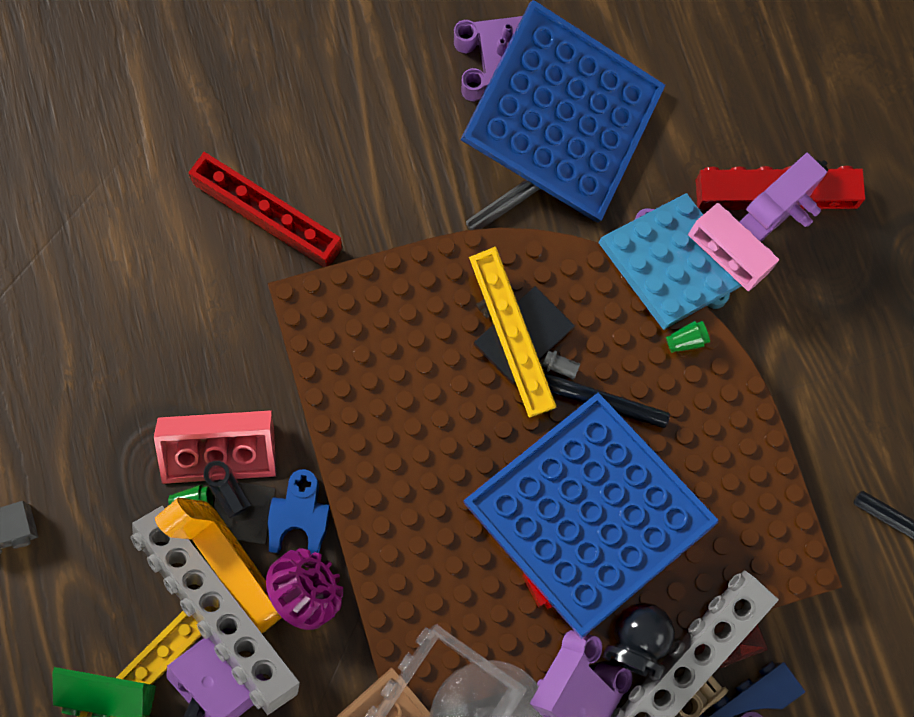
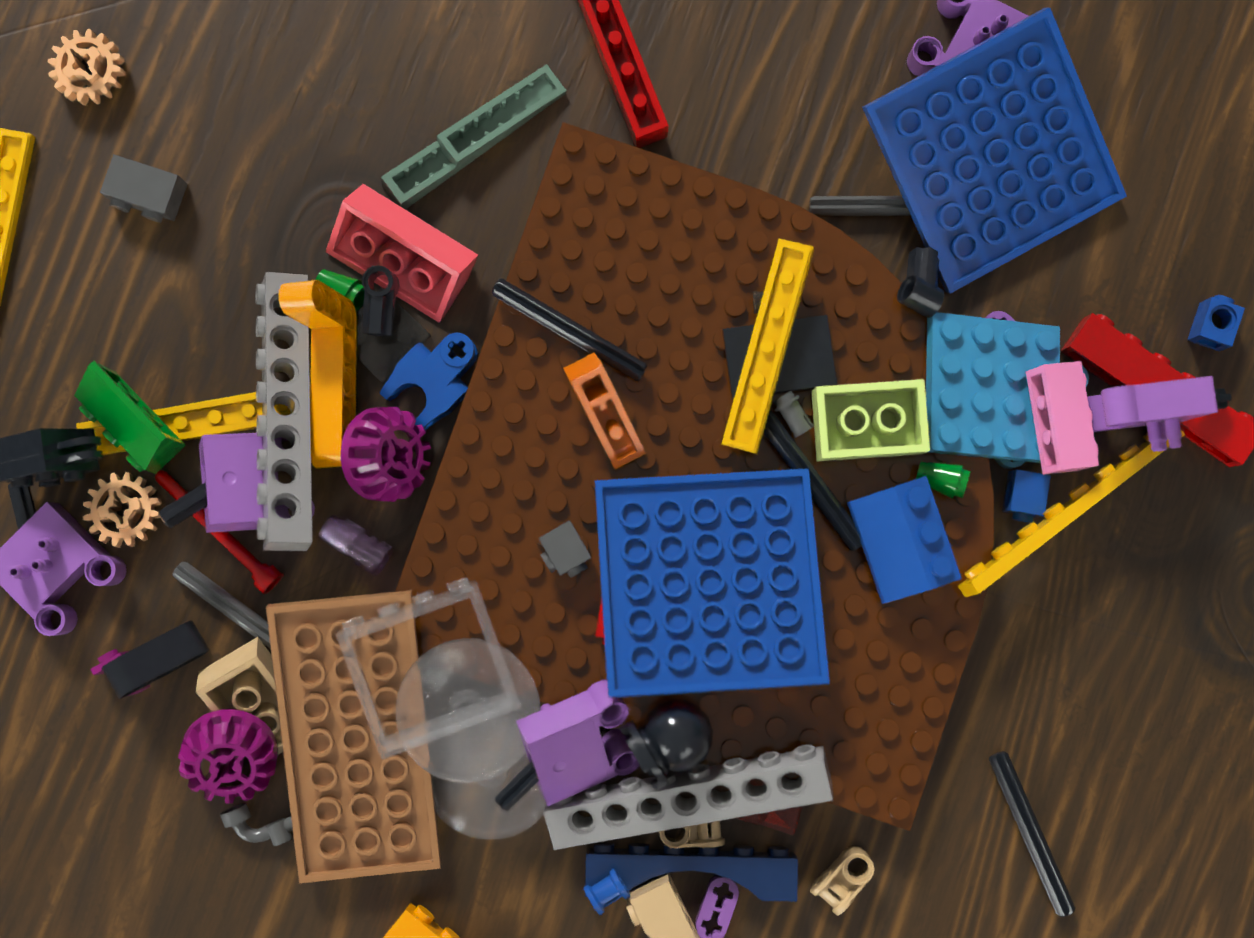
camera: 40 degrees right, 10 degrees up
(210, 338) = (471, 137): none -> sand green slope
(322, 669) = (354, 543): none -> clear purple axle
(371, 414) = (569, 329): none -> black axle
(434, 450) = (604, 410): none -> orange slope
(476, 563) = (565, 550): none -> dark grey brick
(580, 227) = (920, 287): none -> black piece
(614, 333) = (870, 420): none -> yellowish green brick
(694, 394) = (904, 540): none -> blue slope
(746, 314) = (1026, 495): none -> blue brick
(776, 134) = (1203, 330): none -> blue brick
(779, 311) = (1058, 517): none -> yellow plate
(824, 656) = (842, 881): none -> tan piece

